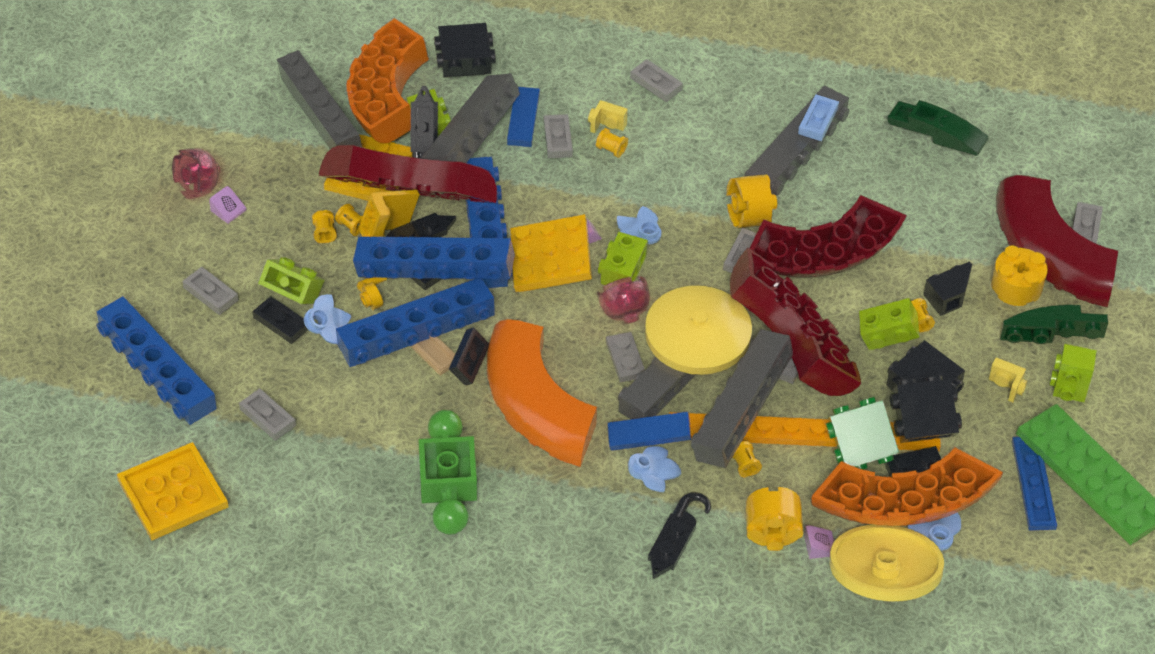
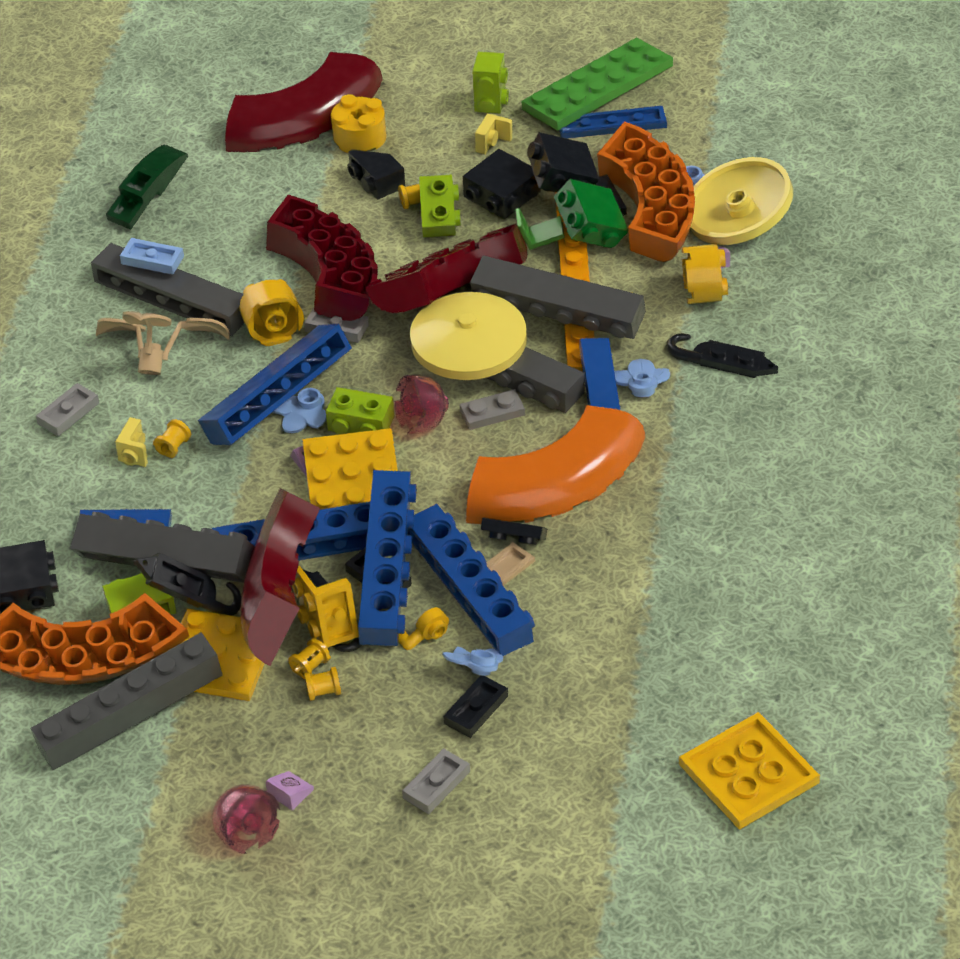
camera: 90 degrees left, 5 degrees down
(156, 361) = (556, 815): blue brick -> none
(267, 414) = (622, 699): light grey plate -> none
(291, 281) = (422, 694): lime brick -> none
(447, 471) = (683, 525): bright green brick -> none
(558, 136) = (161, 487): light grey plate -> none
(663, 205) = (274, 384): none -> blue brick
(710, 126) = (151, 354): none -> tan plant
(852, 398) = (541, 233): none -> bright green bracket
(1044, 322) = (418, 106): dark green slope -> none
(1087, 220) = (273, 82): light grey plate -> none

